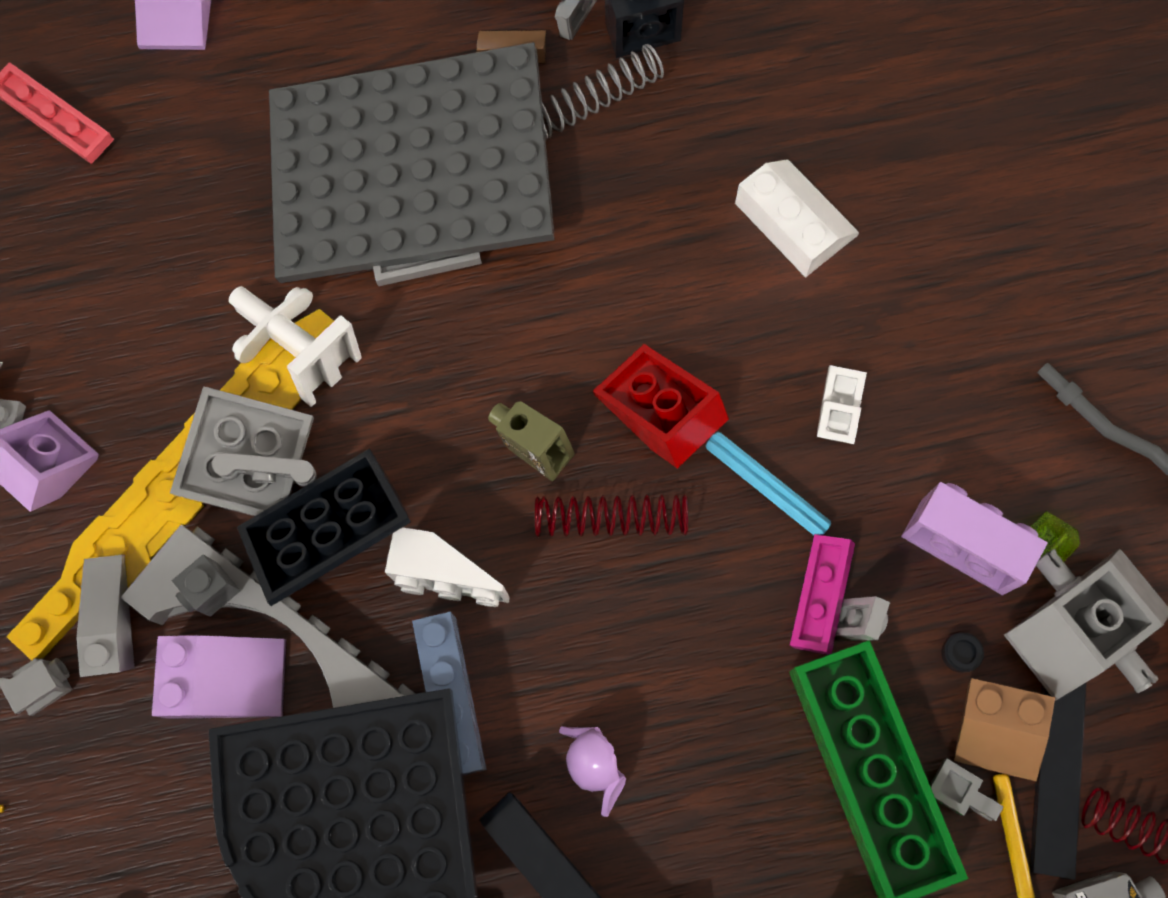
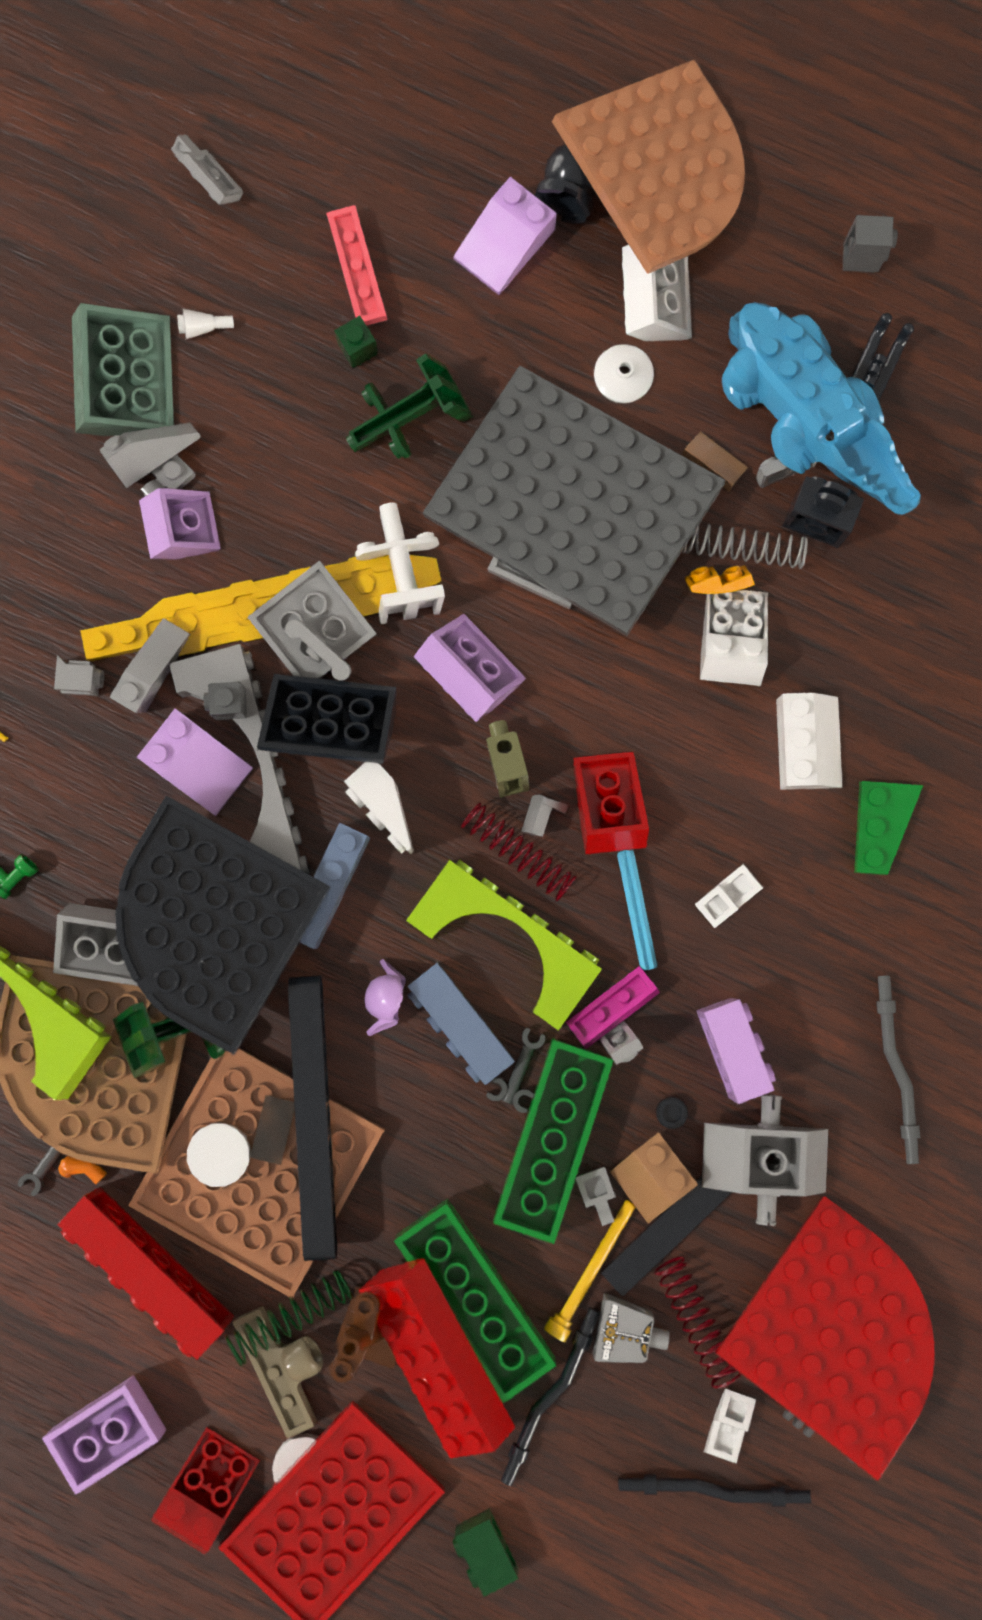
camera: 35 degrees right, 10 degrees up
(96, 174) = (356, 342): none -> dark green brick
(201, 171) = (438, 390): none -> dark green piece
(375, 44) = (620, 386): none -> white dish
(426, 382) = (469, 667): none -> lavender slope
(592, 141) = (707, 580): none -> light orange slope
(602, 464) = (539, 814): none -> light grey tile
(654, 175) = (735, 637): none -> white slope
(691, 729) = (460, 1023): none -> sand blue brick
(747, 593) = (565, 970): none -> lime arch
(792, 758) = (510, 1093): none -> dark grey bar
(921, 237) = (881, 823): none -> green wing
(1058, 535) = (792, 1088): clear neon green slope -> none

